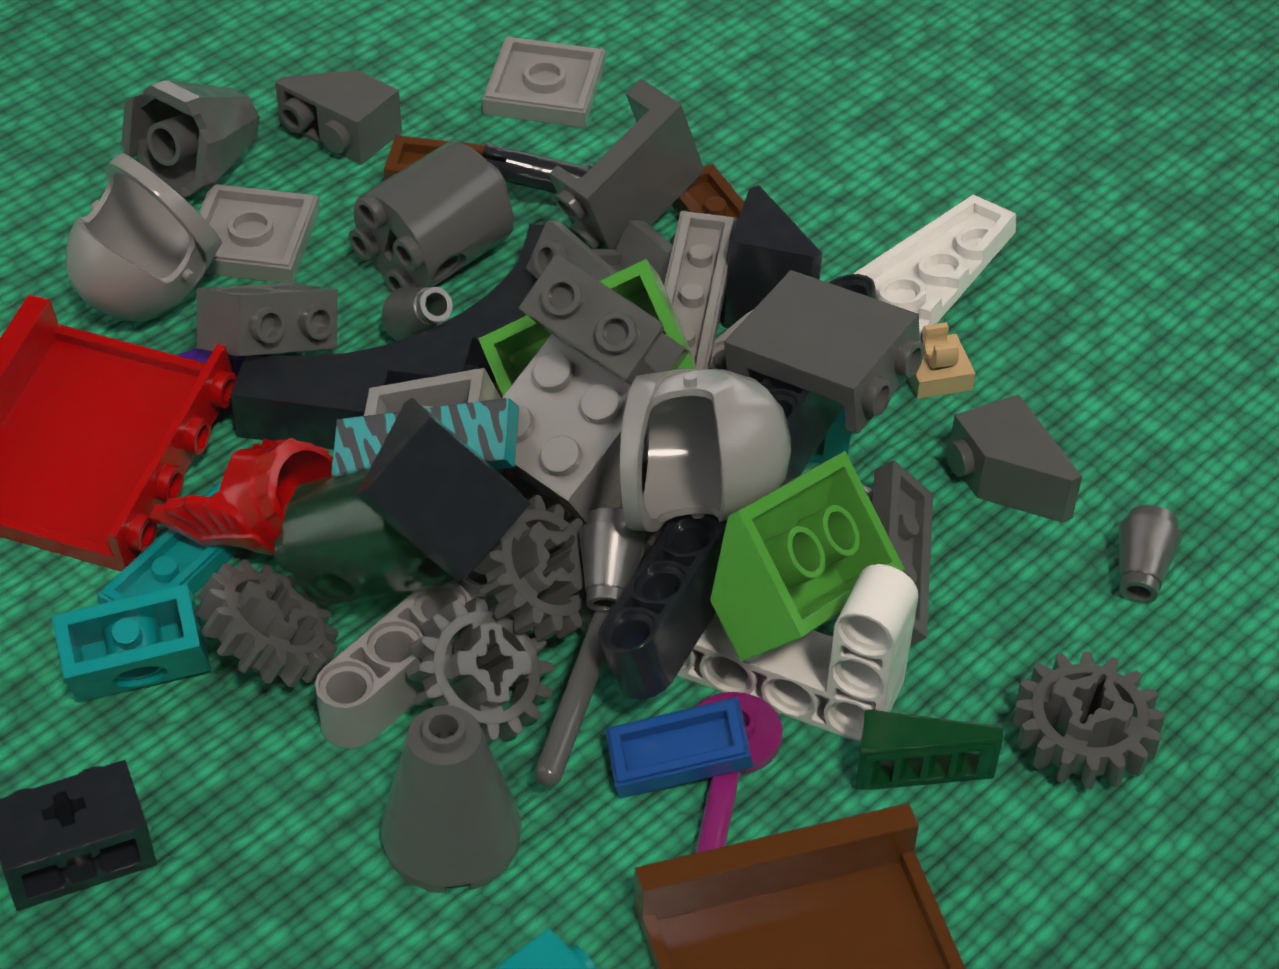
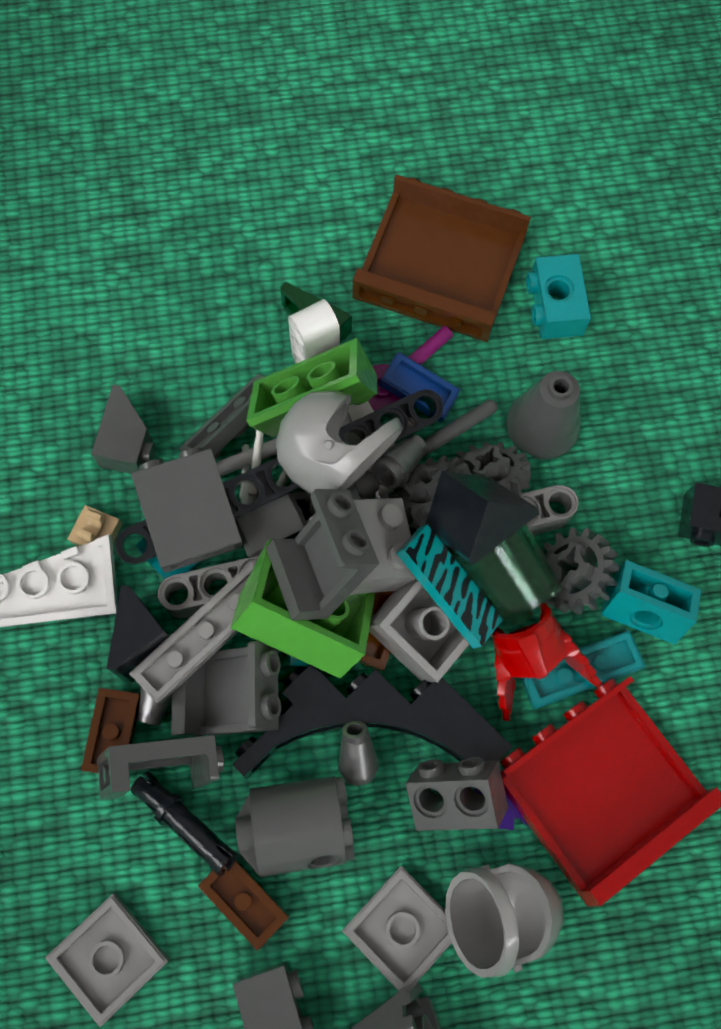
camera: 145 degrees left, 25 degrees up
(1088, 720) = (234, 268): dark grey gear -> none
(1146, 550) = (115, 345): flat silver cone -> none

